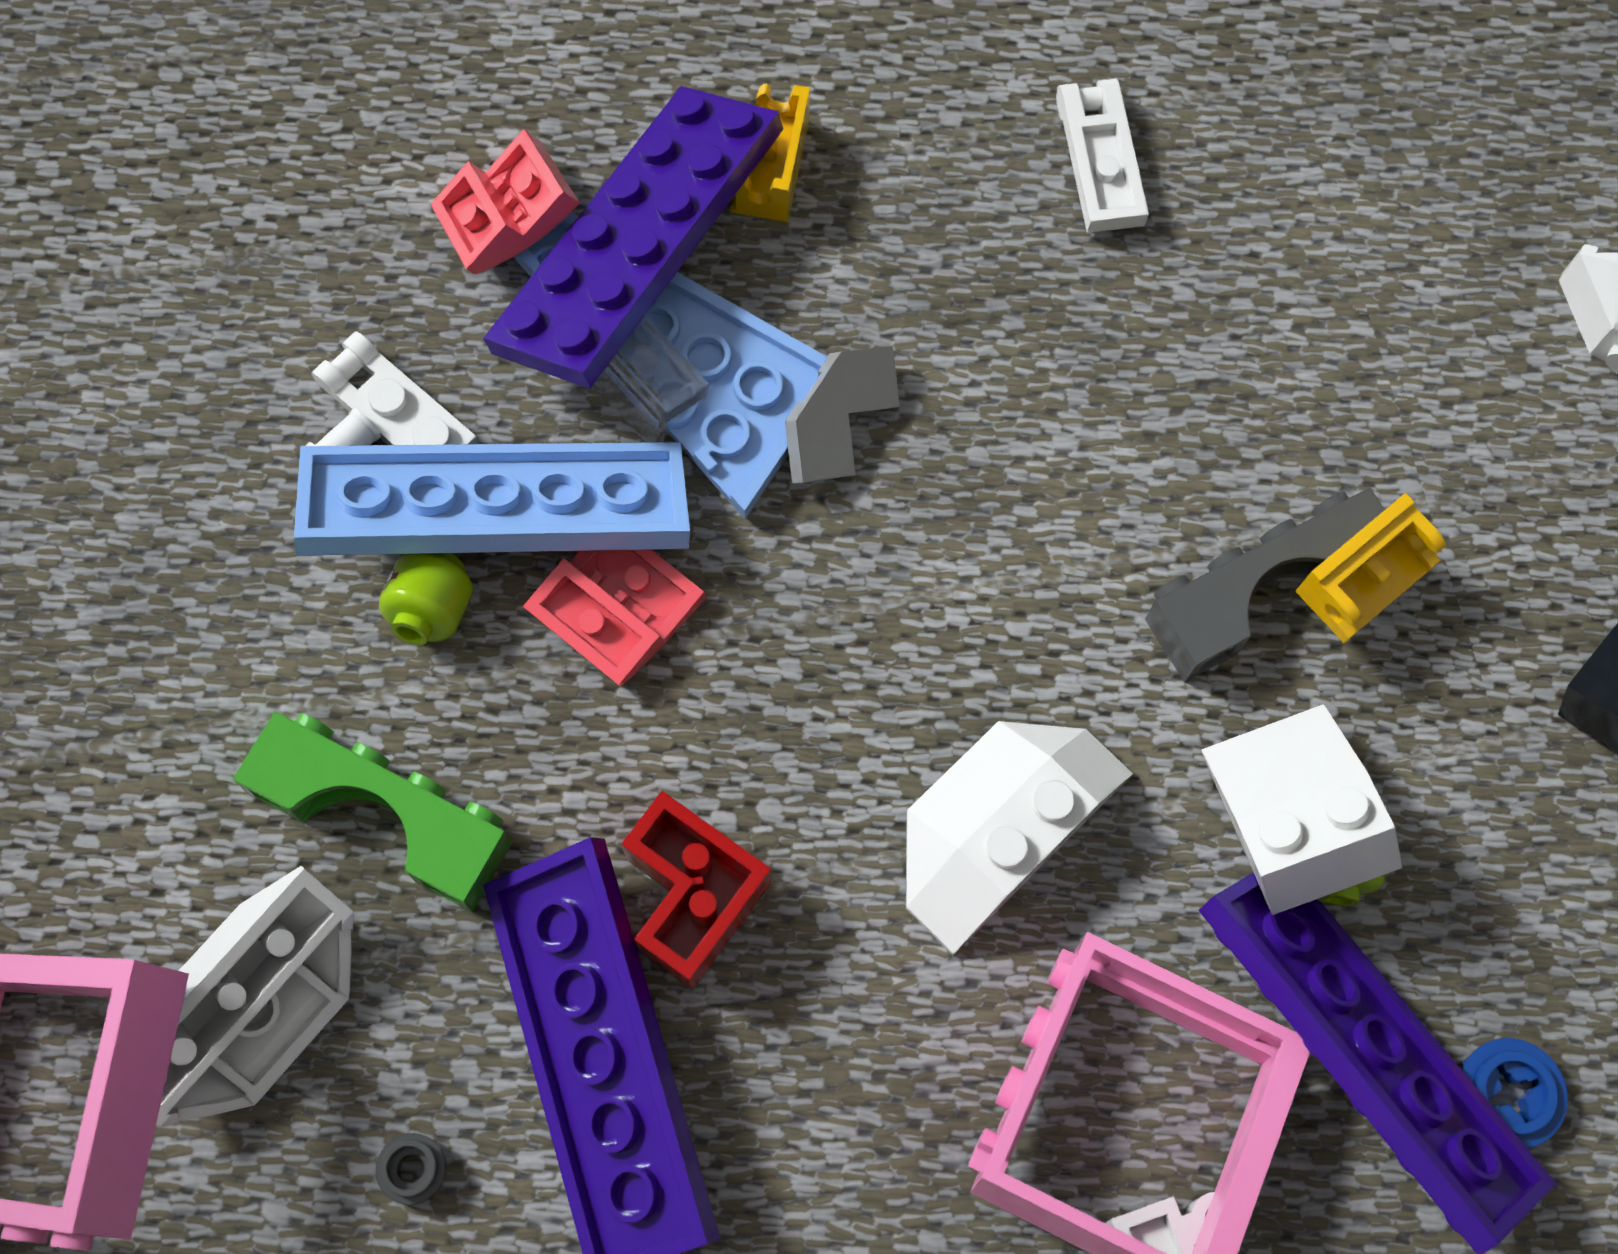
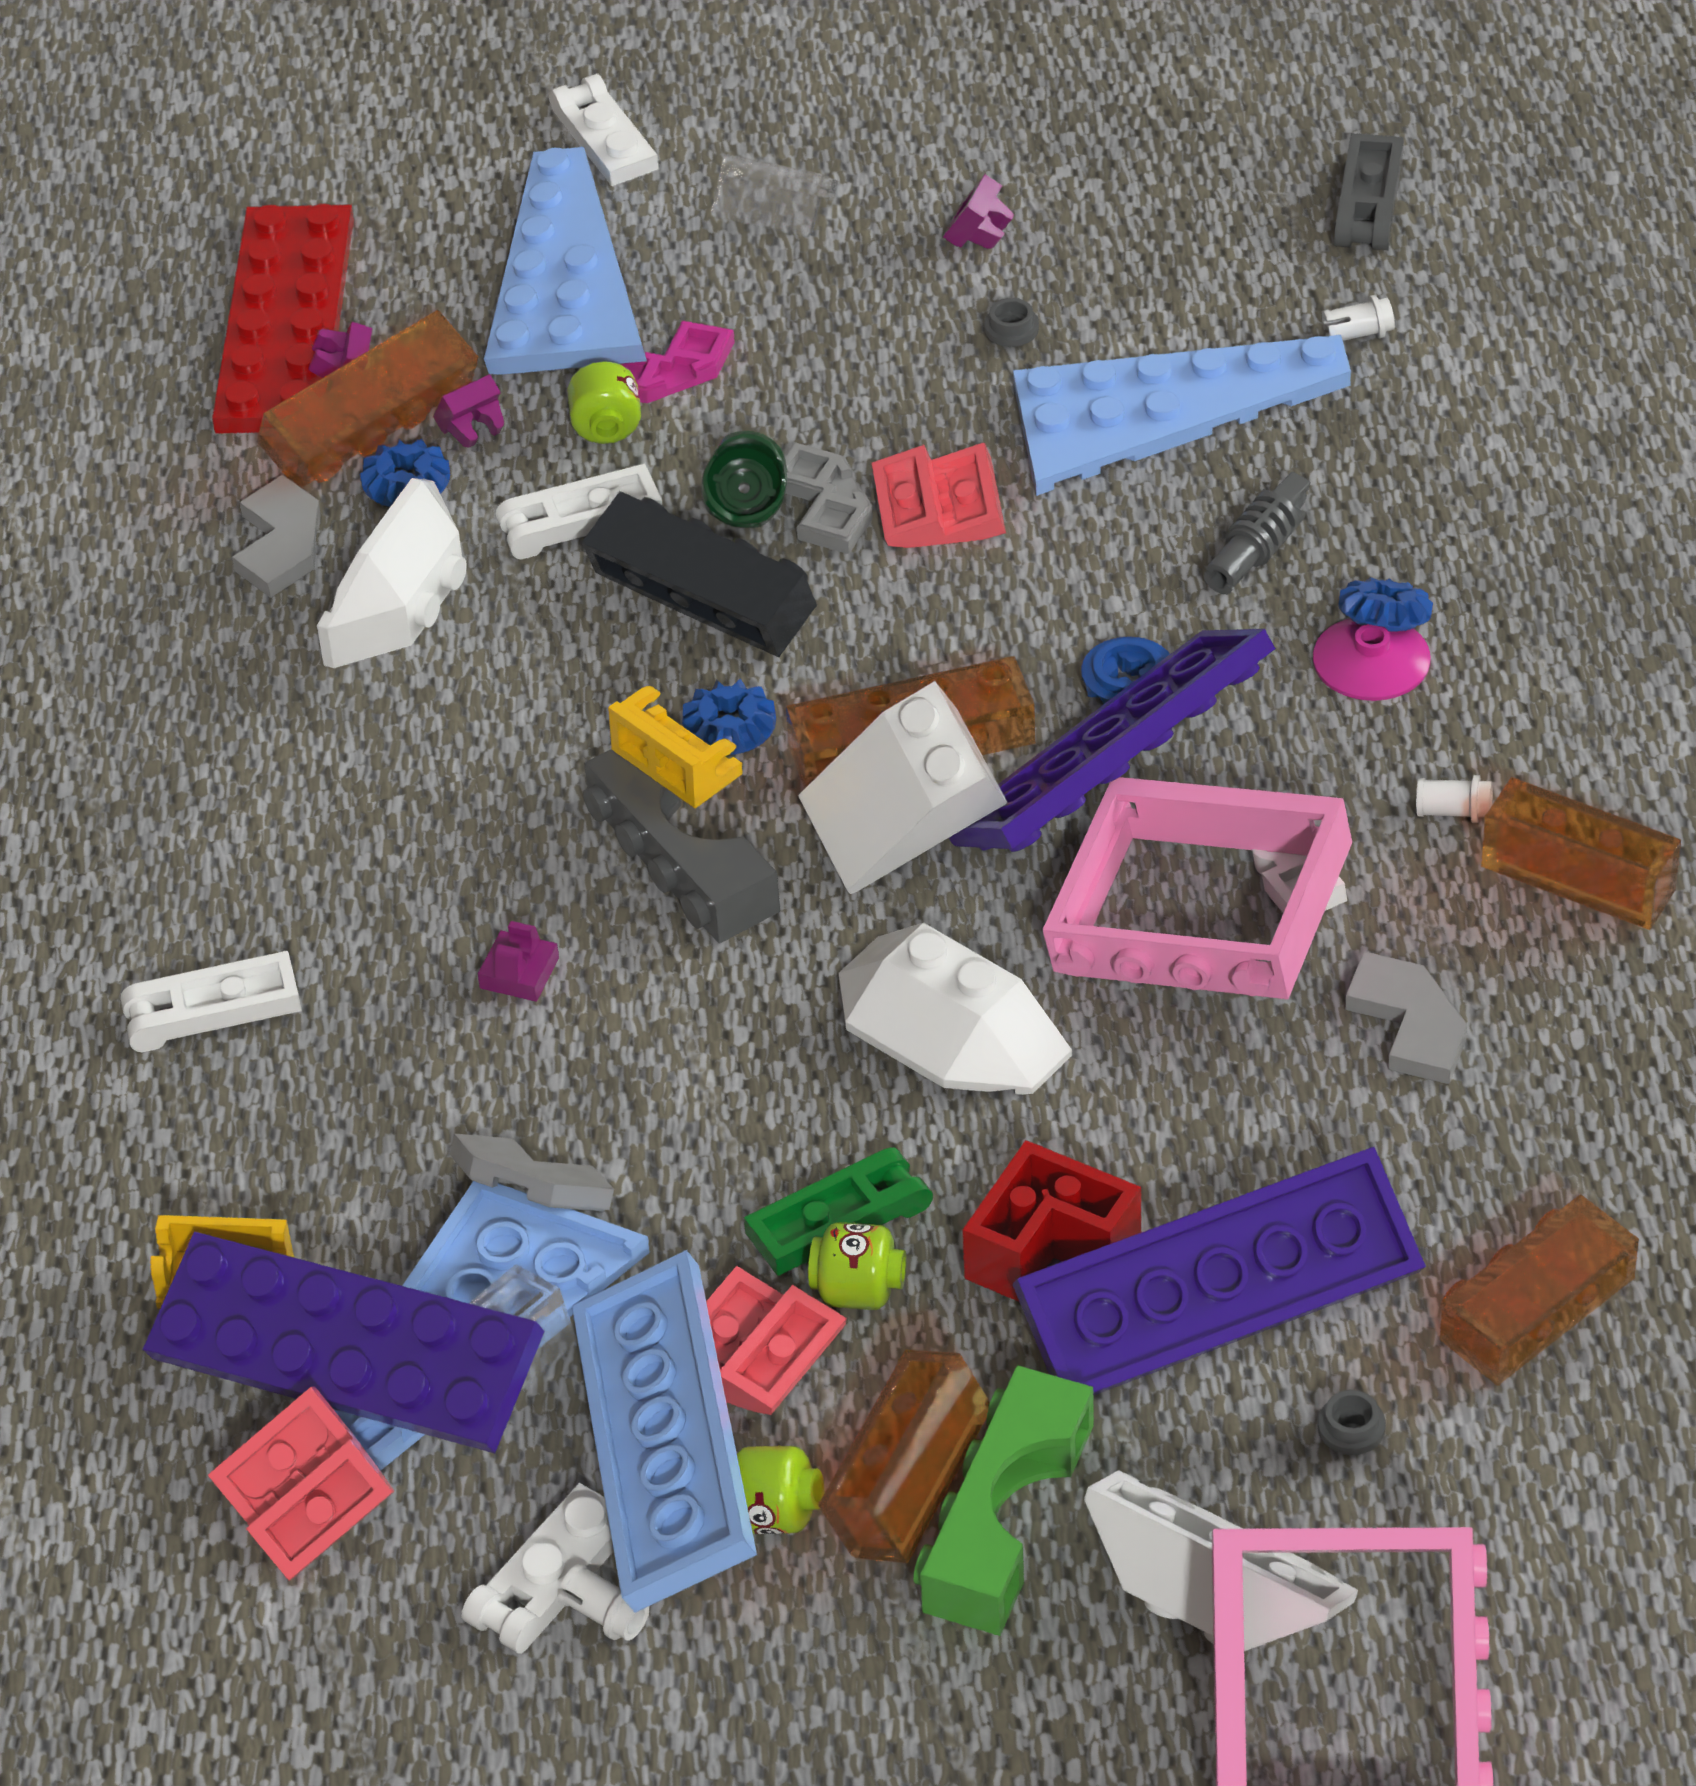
camera: 90 degrees left, 25 degrees down
(426, 716) = (905, 1456): none -> clear orange brick
(675, 698) = (856, 1266): none -> lime head
(761, 691) = (788, 1226): none -> green plate
(1125, 425) = (518, 963): none -> magenta tile
(1447, 869) = (986, 694): none -> clear orange brick
(1462, 681) = (747, 731): none -> blue gear

